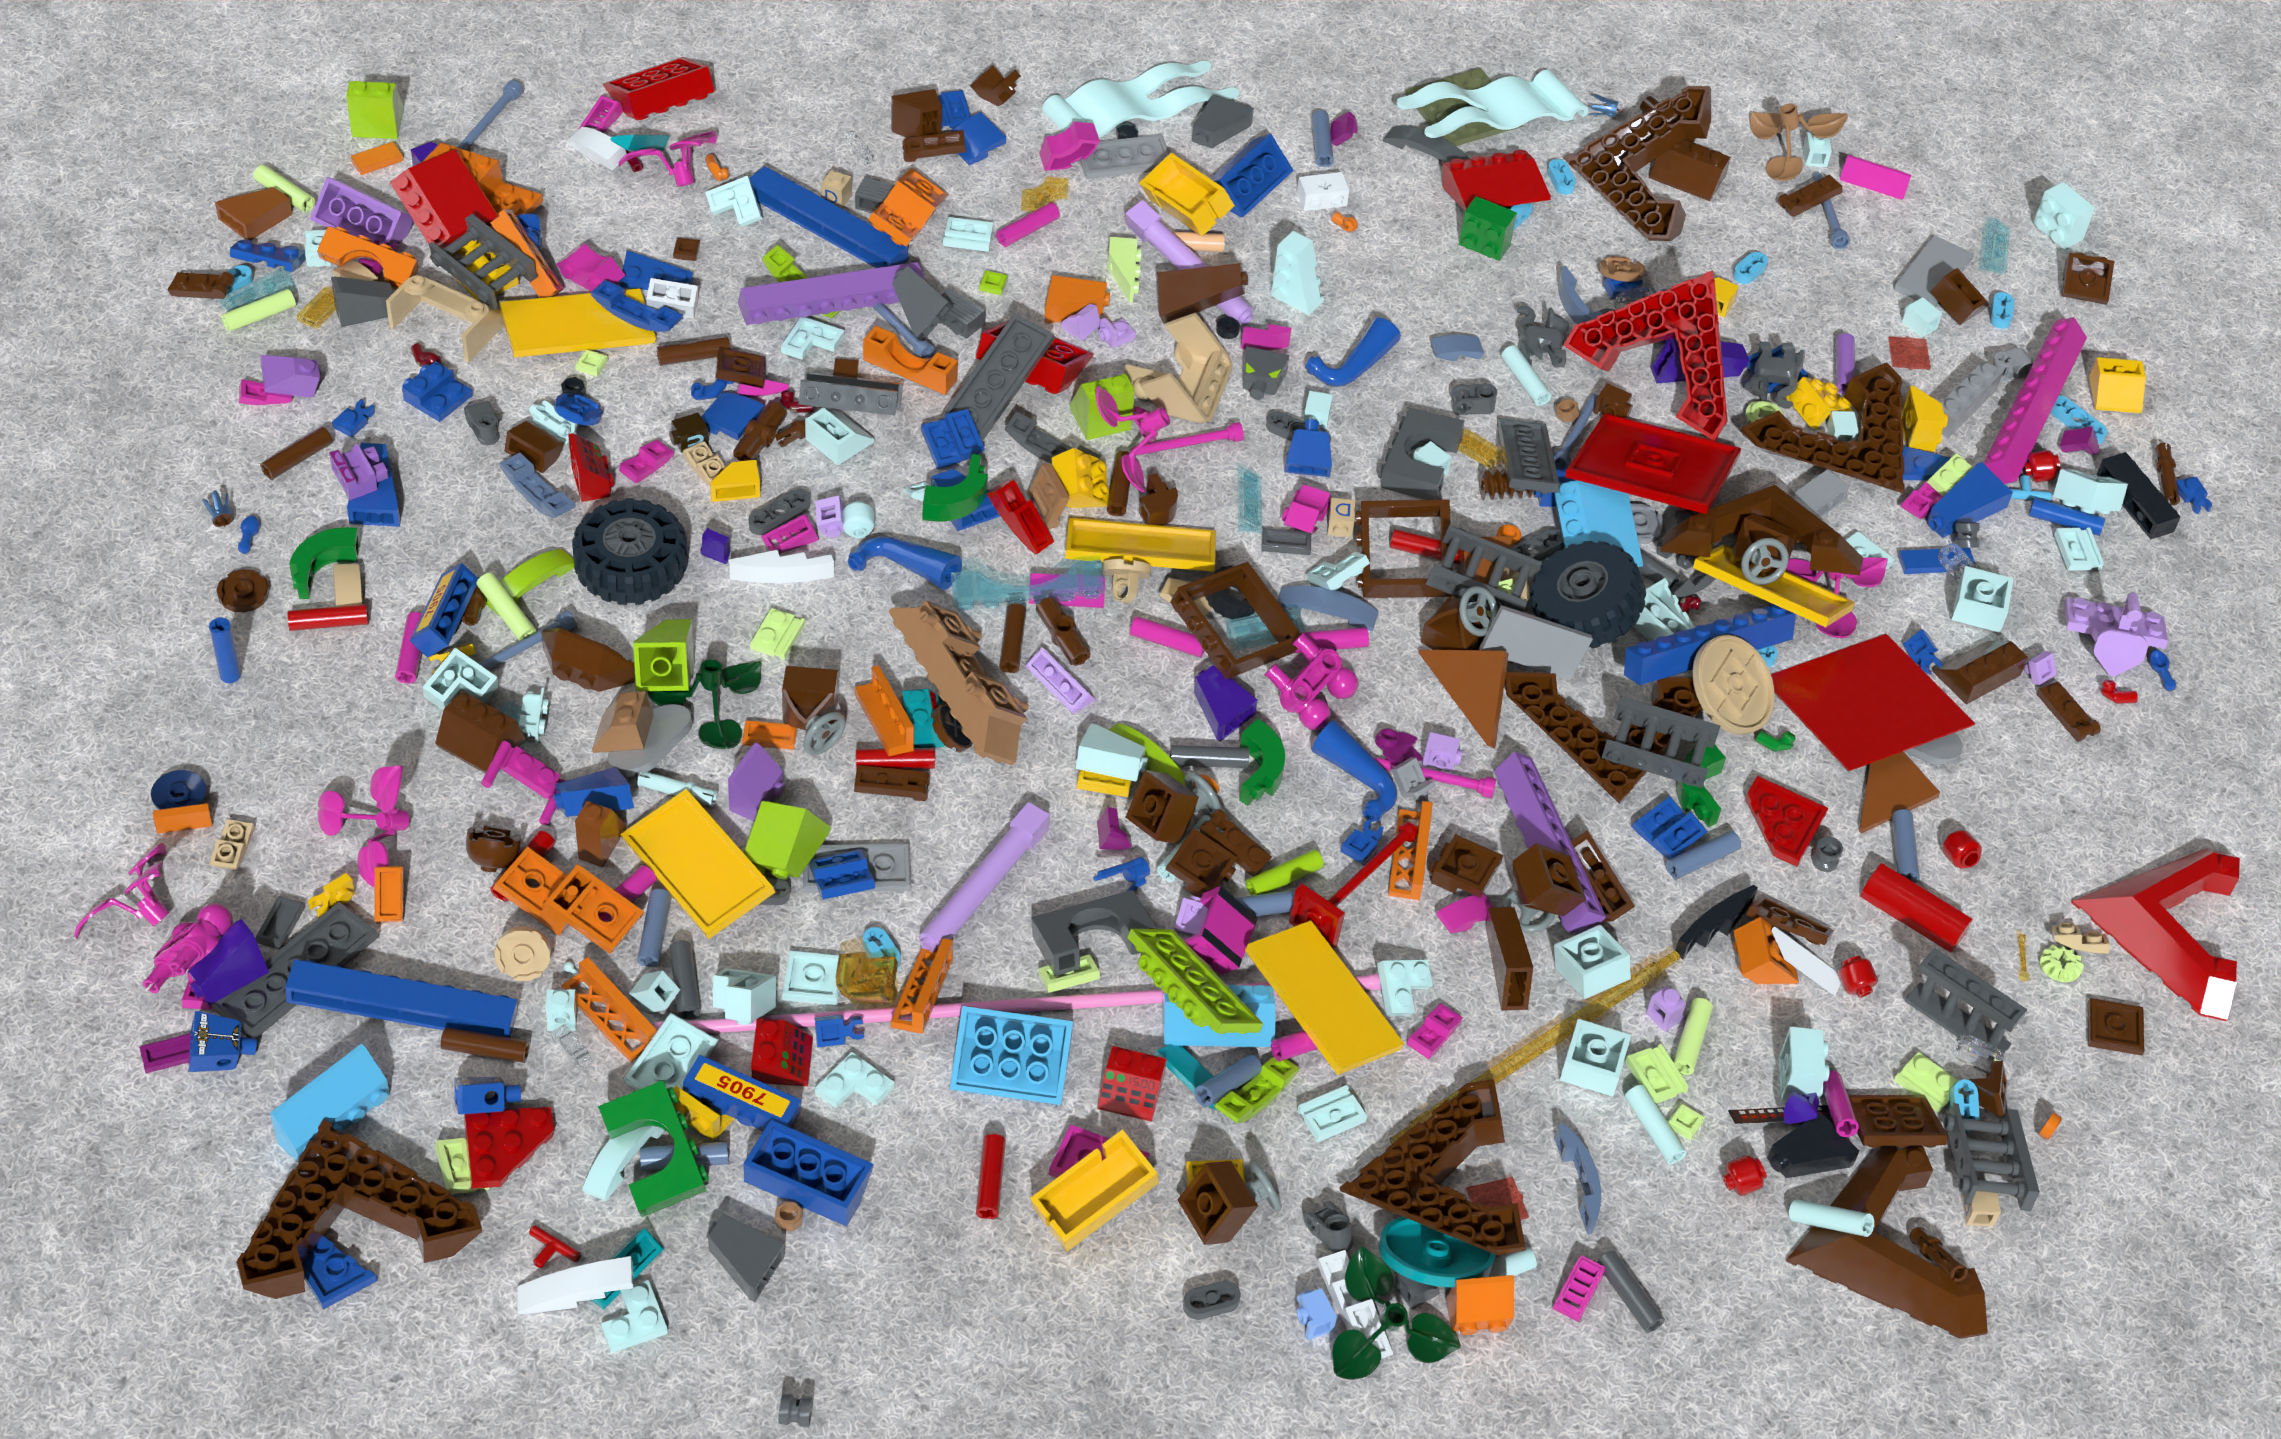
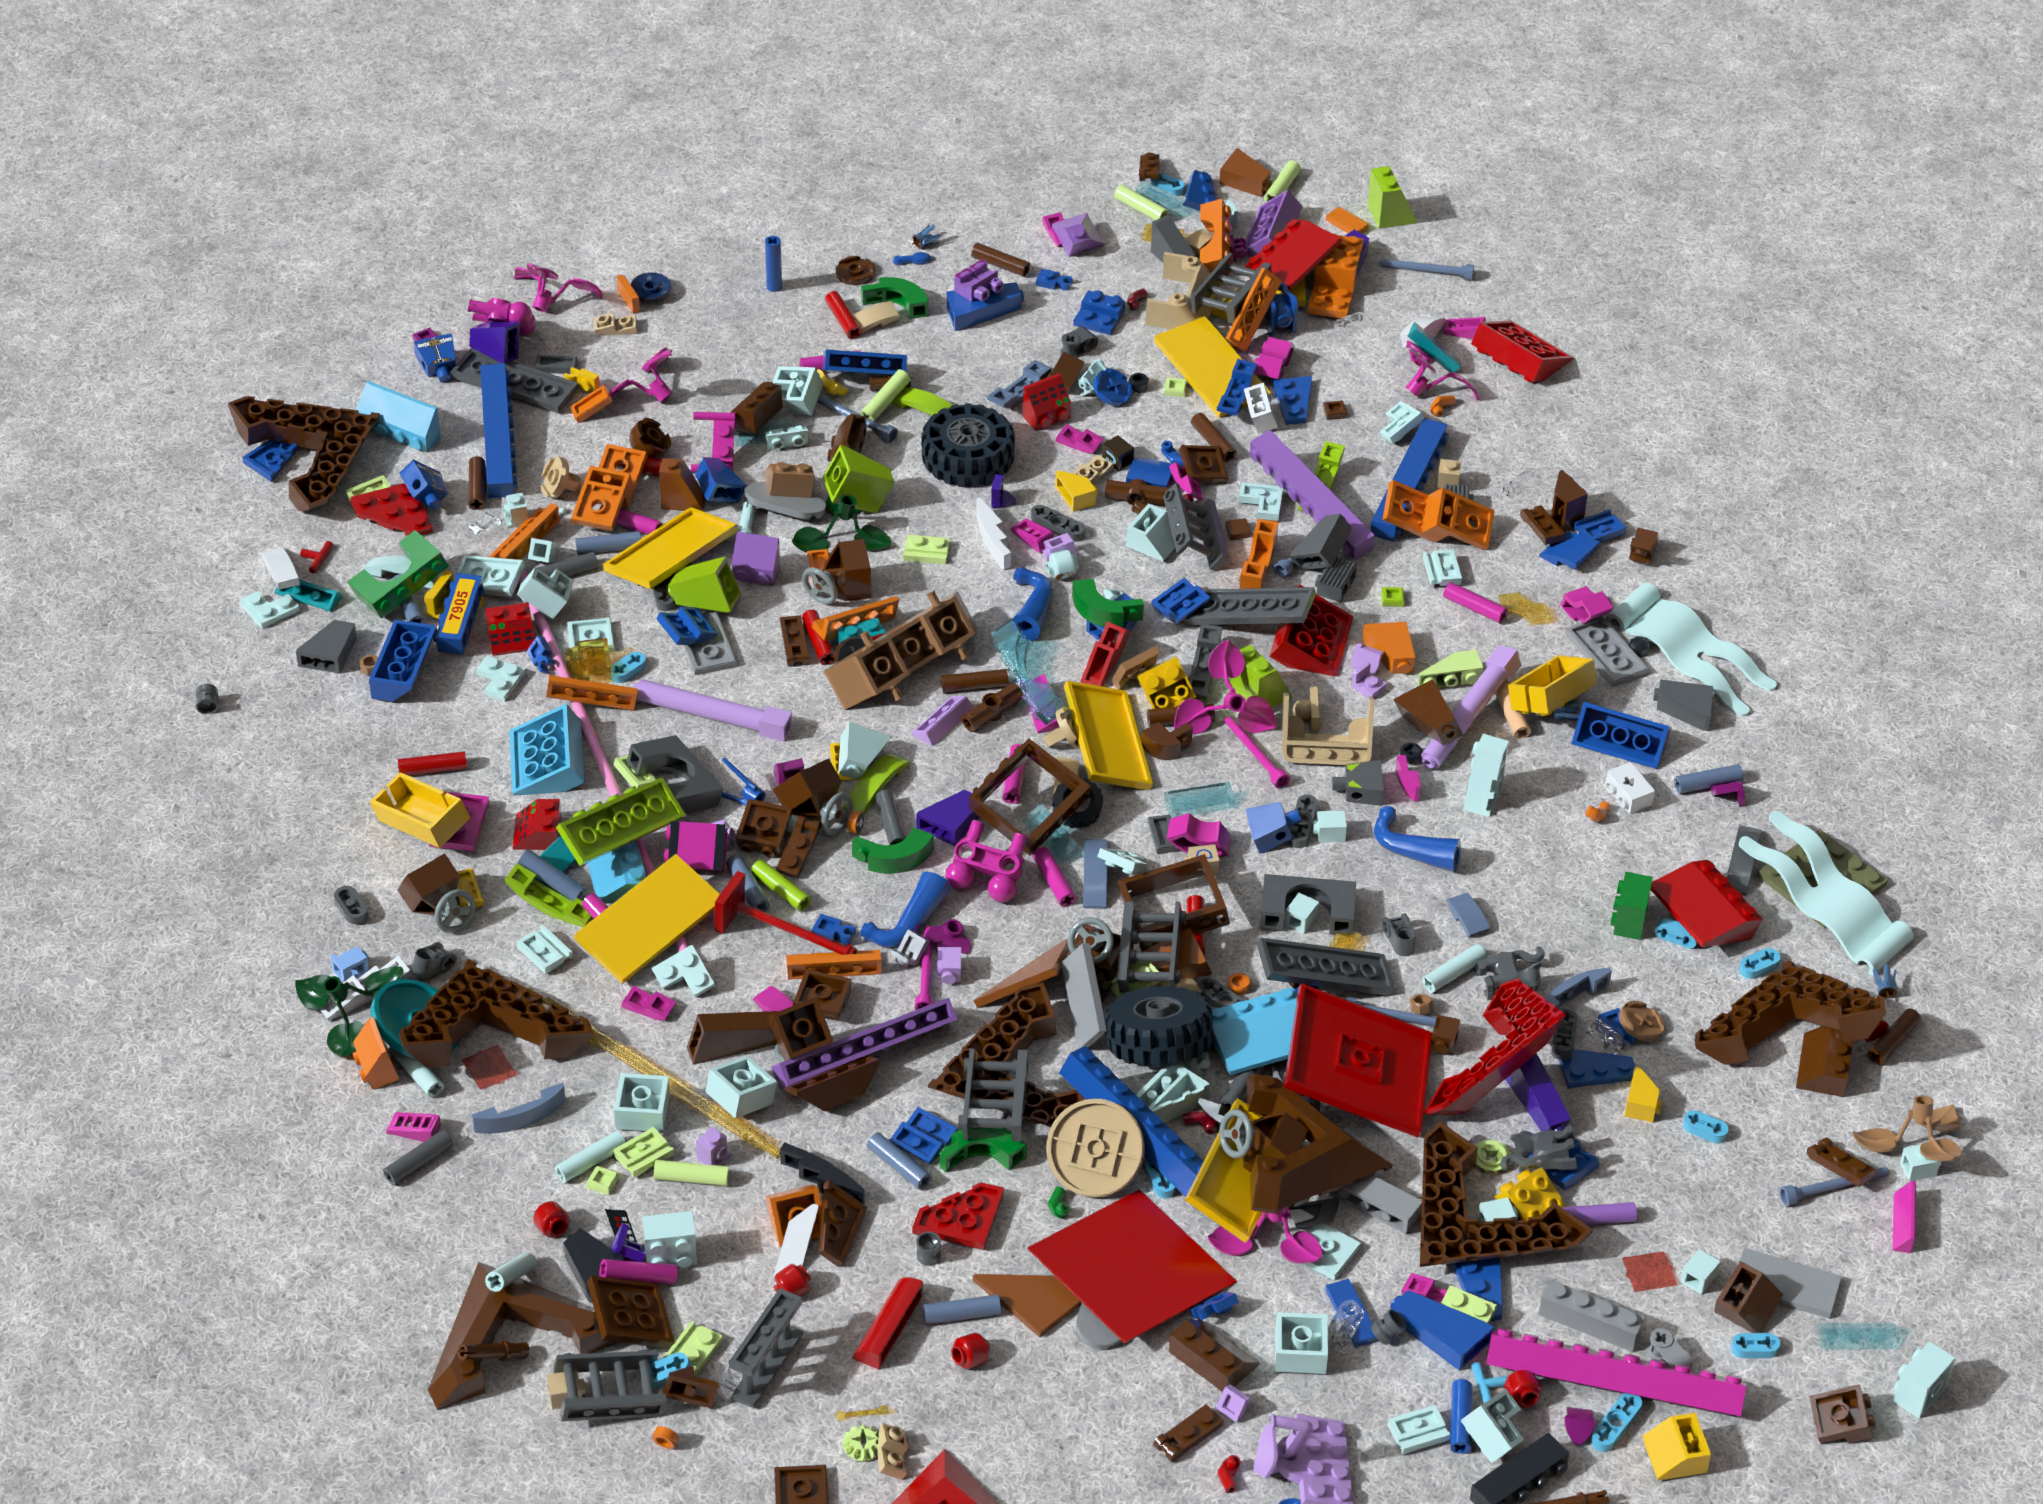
camera: 80 degrees right, 5 degrees down
(1922, 420) = (1526, 1271): yellow slope -> none

